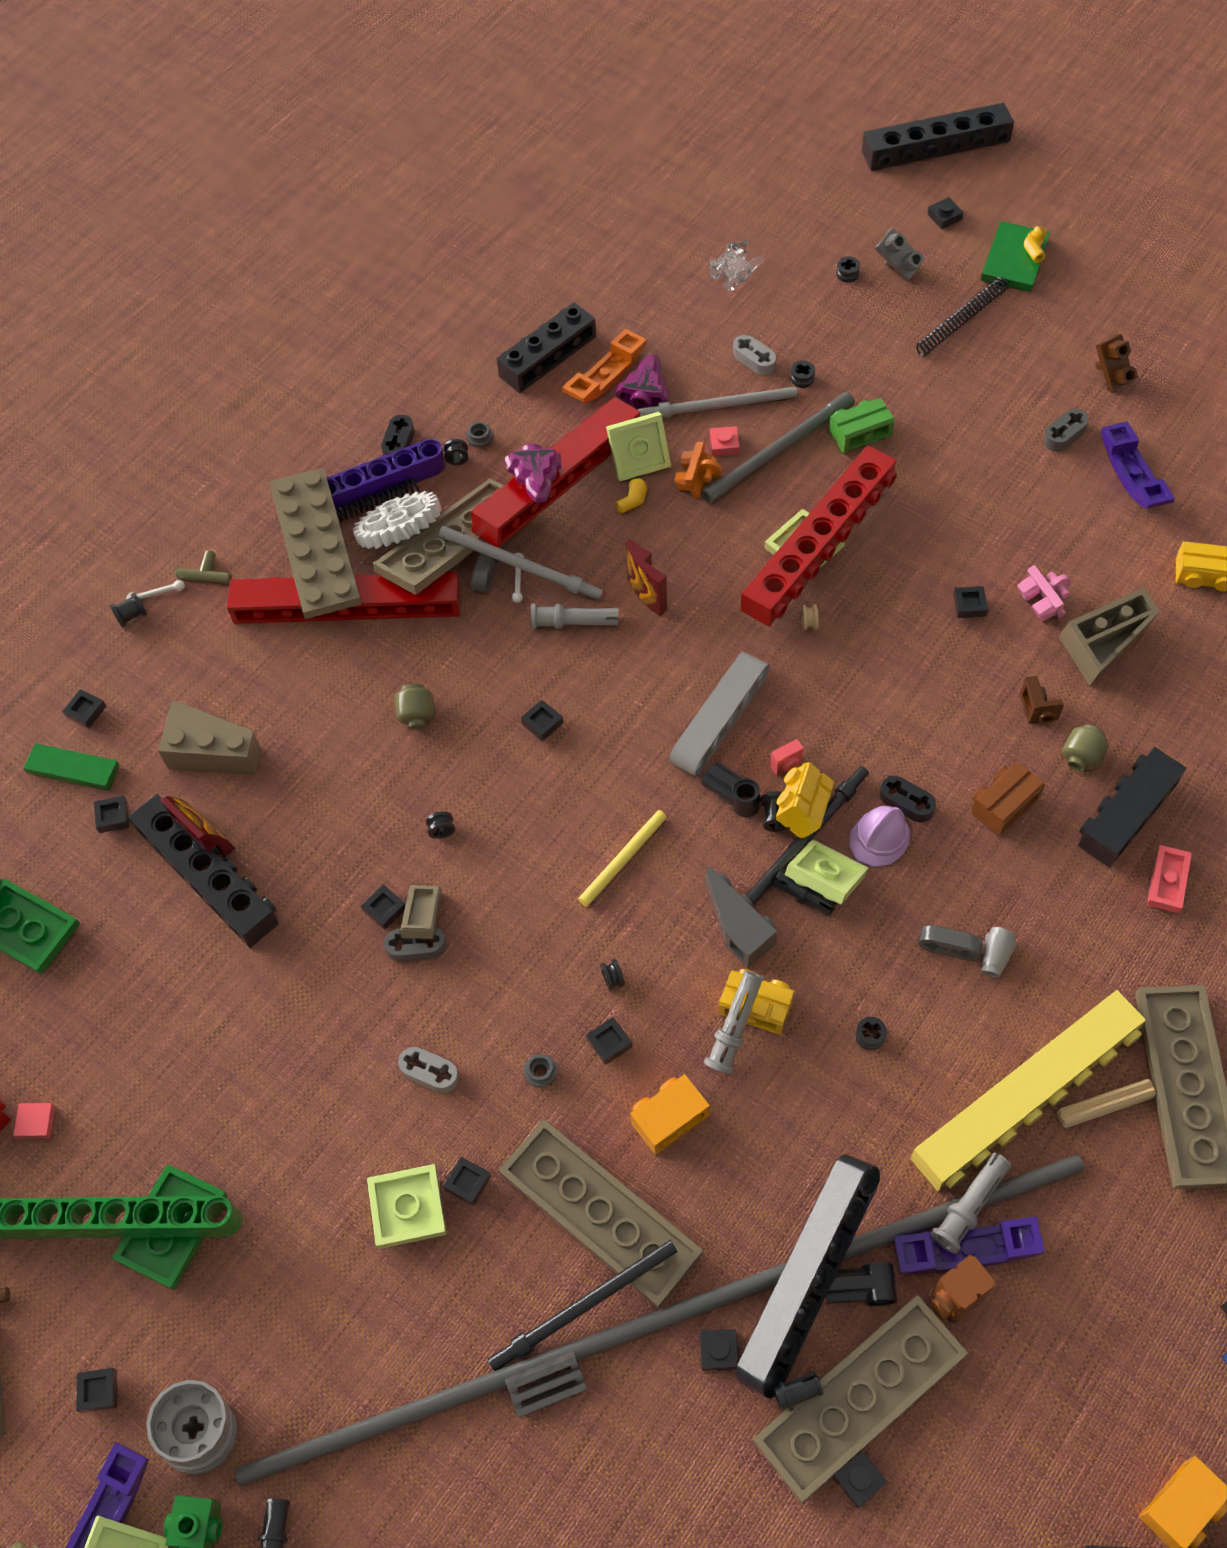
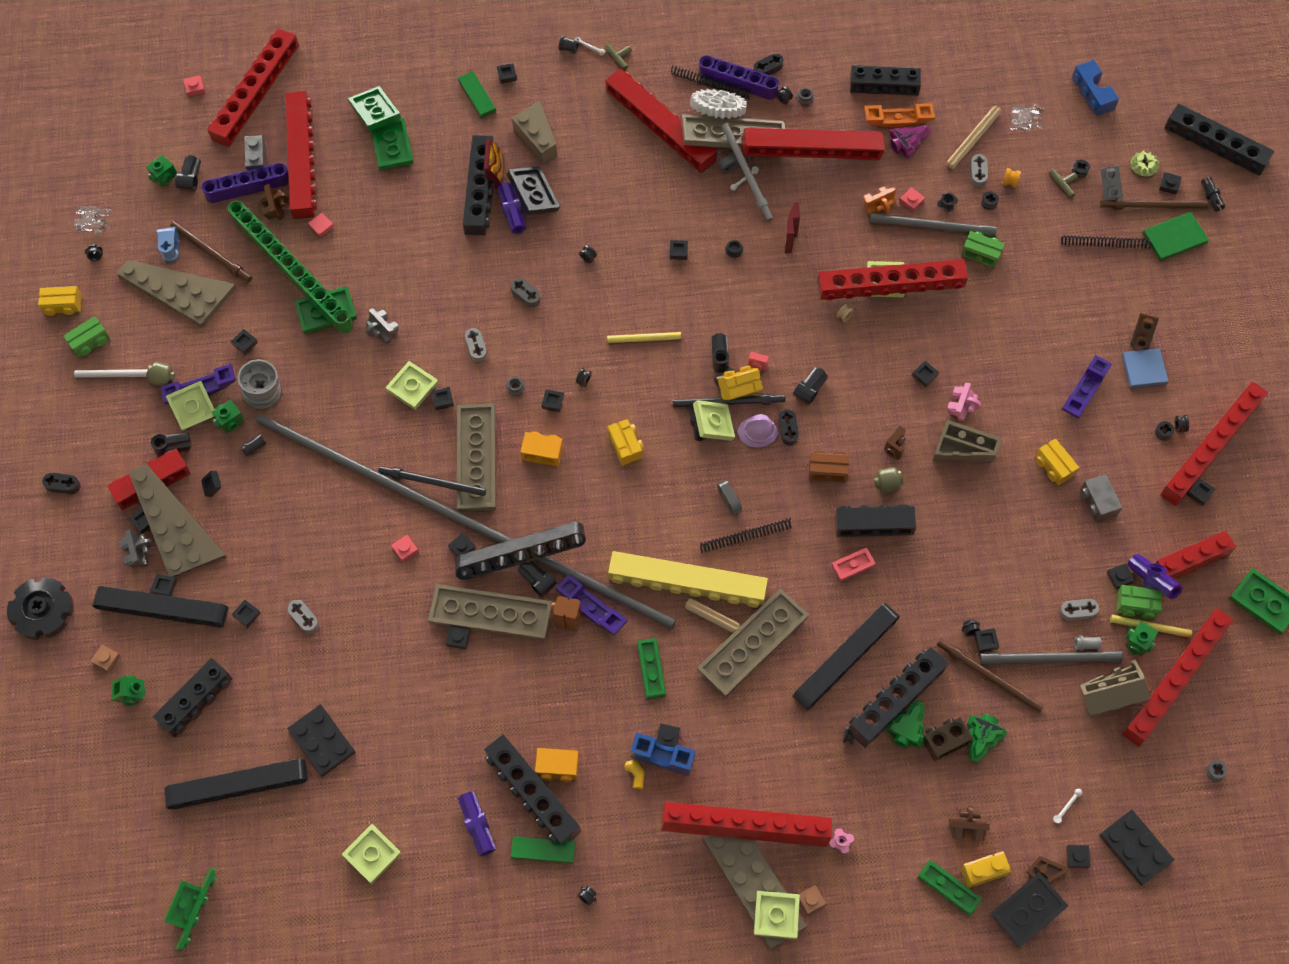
camera: 45 degrees right, 5 degrees up
(111, 814) = (470, 128): black plate -> none
(273, 1174) = (378, 326): none -> flat silver hips
(278, 858) = (511, 208): none -> dark purple piece
(283, 812) = (533, 190): none -> black plate
(315, 543) = (671, 82): dark tan plate -> none
(383, 907) = (529, 266): black plate -> none
(414, 706) = (634, 194): olive head -> none
(421, 912) = (540, 281): dark tan tile -> none
(534, 469) = (794, 132): magenta rock -> none
(548, 1397) = (375, 488): flat silver tile -> none
(560, 616) = (739, 212): light grey pin -> none
(602, 661) = (734, 249): none -> black plate
(635, 496) = (839, 188): yellow arm -> none
(638, 446) = (863, 165): yellowish green plate -> none
(649, 1436) = (404, 548): none -> coral plate
(667, 409) = (904, 160): light grey bar -> none
(707, 328) = (974, 136): none -> tan axle
(719, 713) = (755, 316): light grey beam -> none
(724, 1036) = (596, 442): light grey pin -> none
(741, 926) = (654, 406): dark grey slope -> none
(763, 411) = (947, 197): none -> black plate
(777, 191) = (1099, 99): none -> blue arch
(797, 332) = (1011, 178): none -> light orange wheel
(797, 1391) = (471, 585): black pin -> none
(848, 295) = (1063, 182): none -> olive piece
(871, 1023) = (655, 505): black bush -> none
(876, 735) = (808, 389): none -> black piece
(902, 221) = (1140, 168): none -> yellowish green gear
(929, 268) = (1119, 203): none -> reddish brown bar
(964, 1214) = (601, 592): light grey pin -> none
(997, 188) = (1213, 194): none -> black pin
(997, 951) = (744, 519): light grey cone -> none
(1014, 996) = (744, 533): none -> black piece
(1033, 244) = (1189, 237): yellow arm -> none
(1061, 426) = (1080, 341): dark grey beam -> none
(1124, 1247) = (651, 668): none -> green tile
(1155, 400) = (1145, 368): none -> medium blue tile

